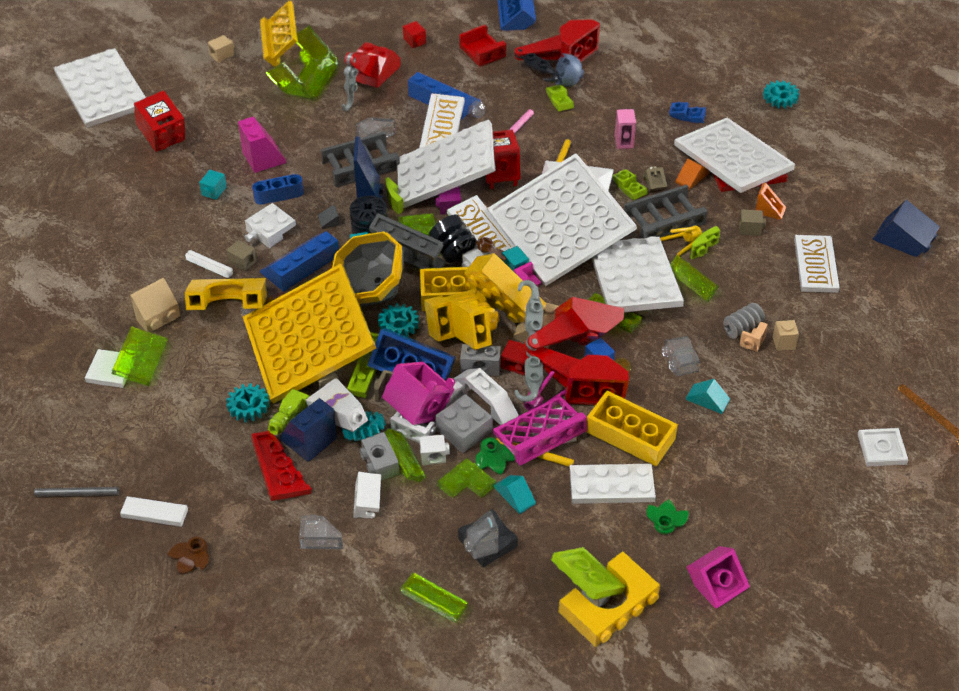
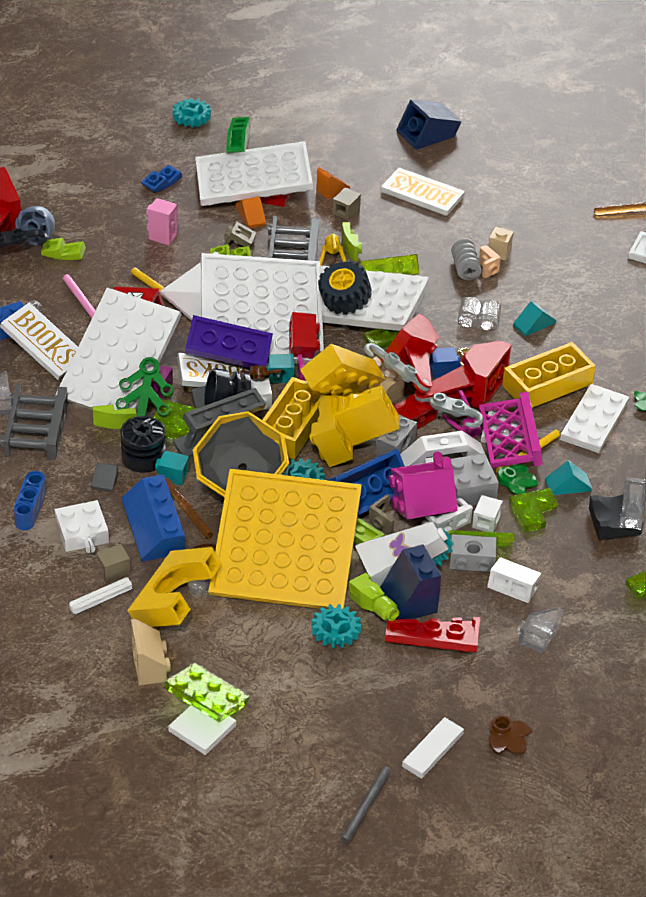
camera: 65 degrees left, 5 degrees down
(366, 175) = (94, 418): dark blue slope -> none
(432, 183) = (145, 391): none -> green plant
(504, 215) = (228, 342): none -> dark purple plate
(549, 253) = (303, 335): none -> red brick
(615, 251) = (344, 287): none -> black wheel
(770, 128) = (238, 135): none -> green slope

